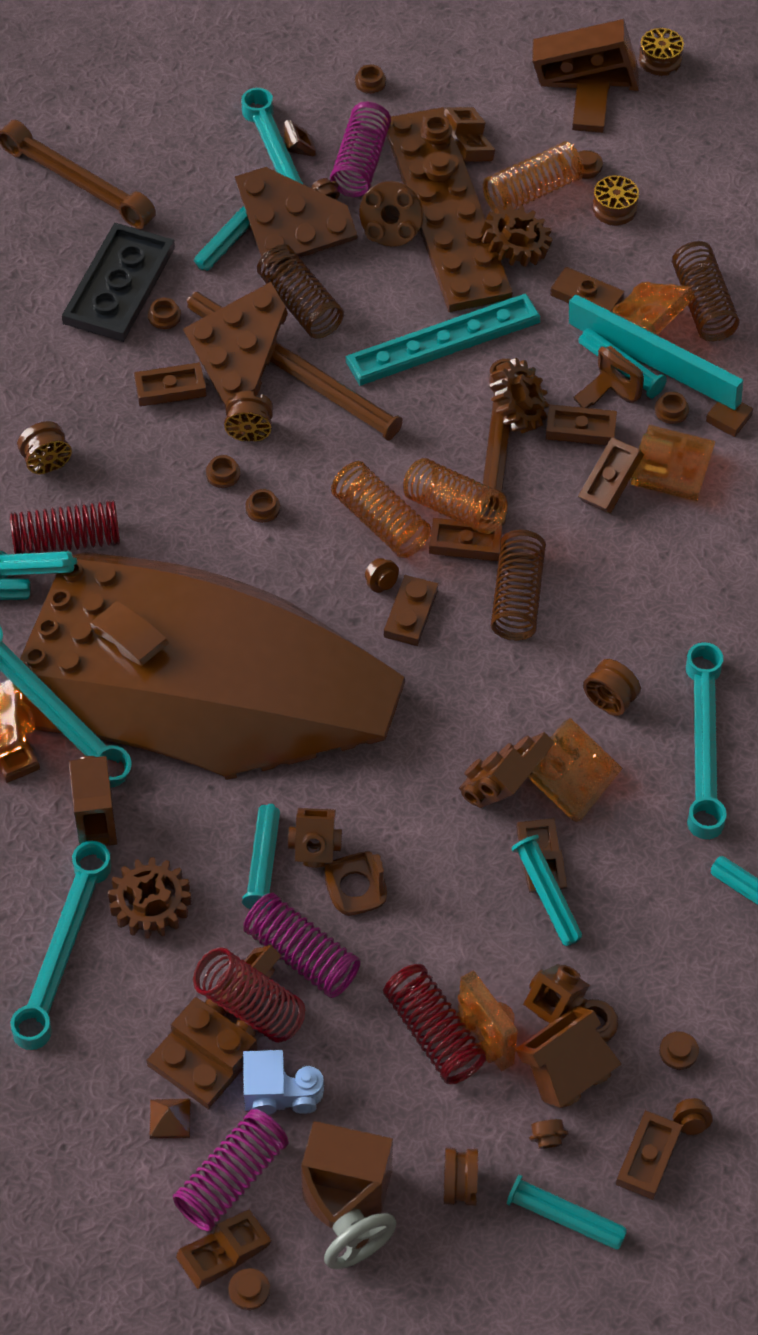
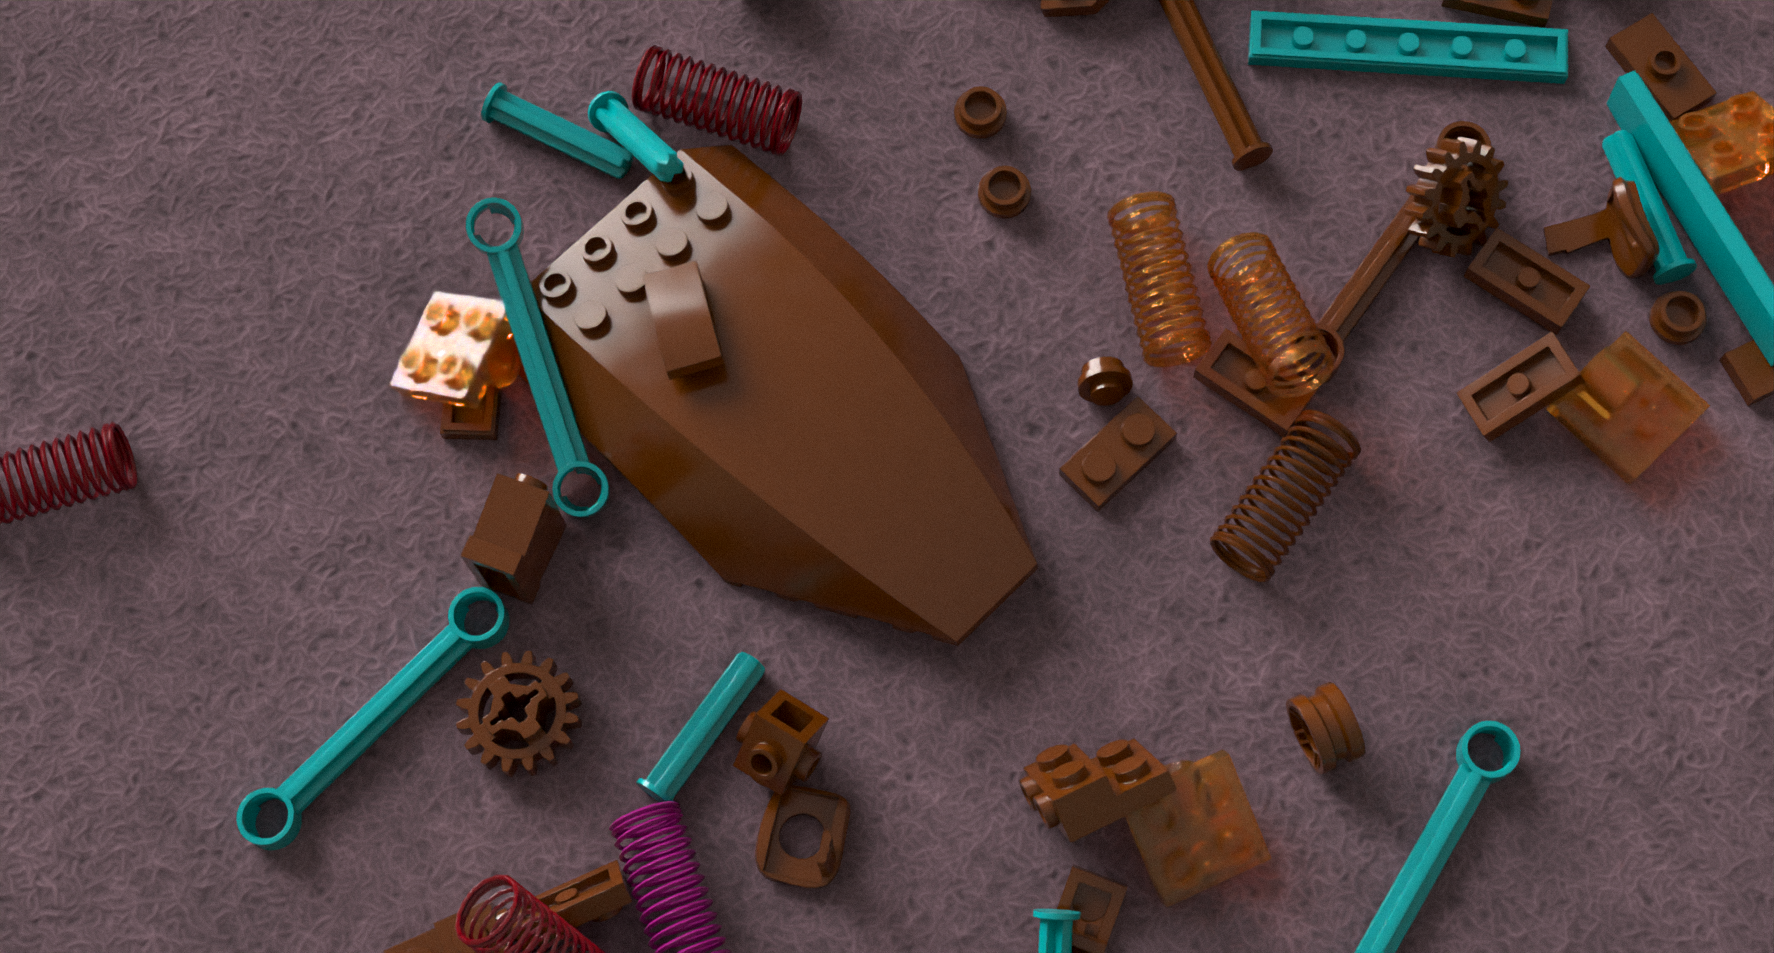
camera: 35 degrees right, 15 degrees up
(248, 416) = (1057, 46): reddish brown wheel -> none

